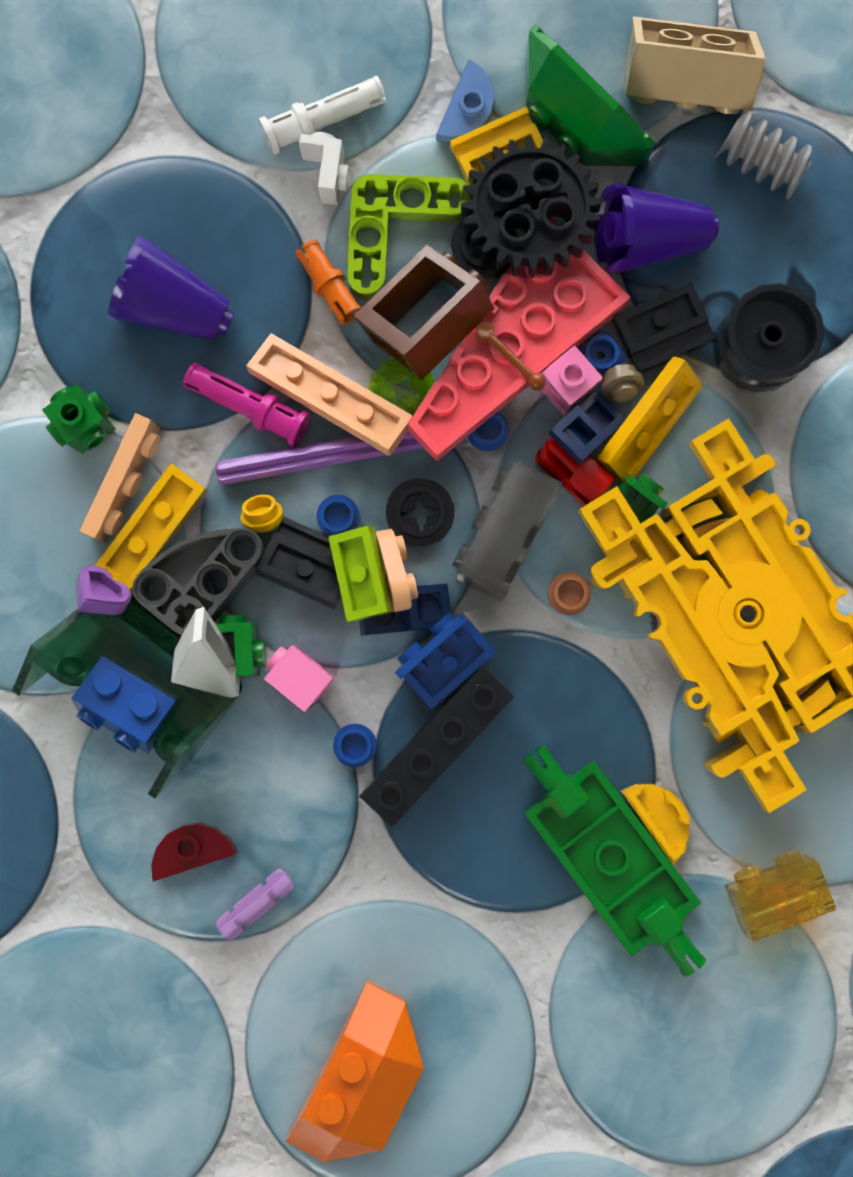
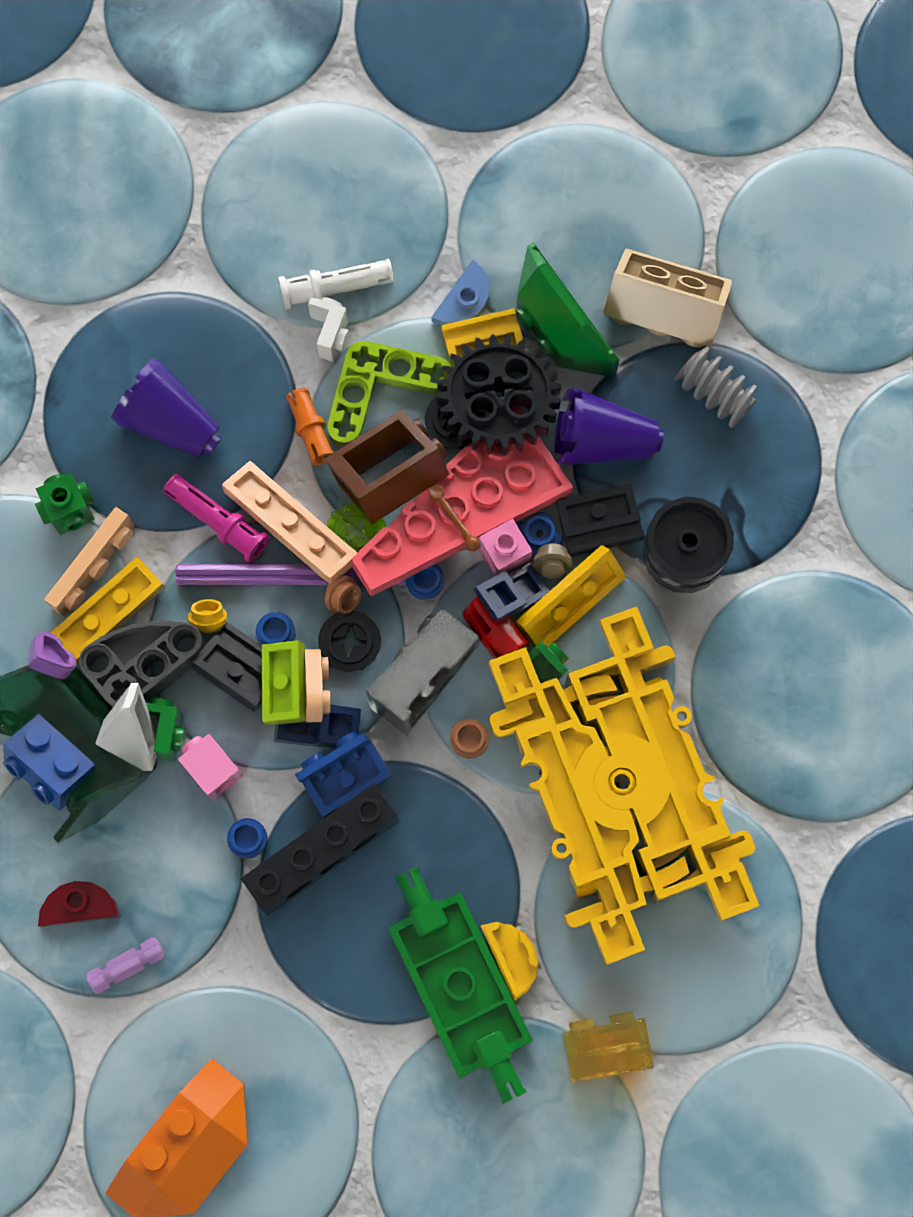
camera: 10 degrees right, 10 degrees down
(404, 464) = (342, 595): none -> nougat plate

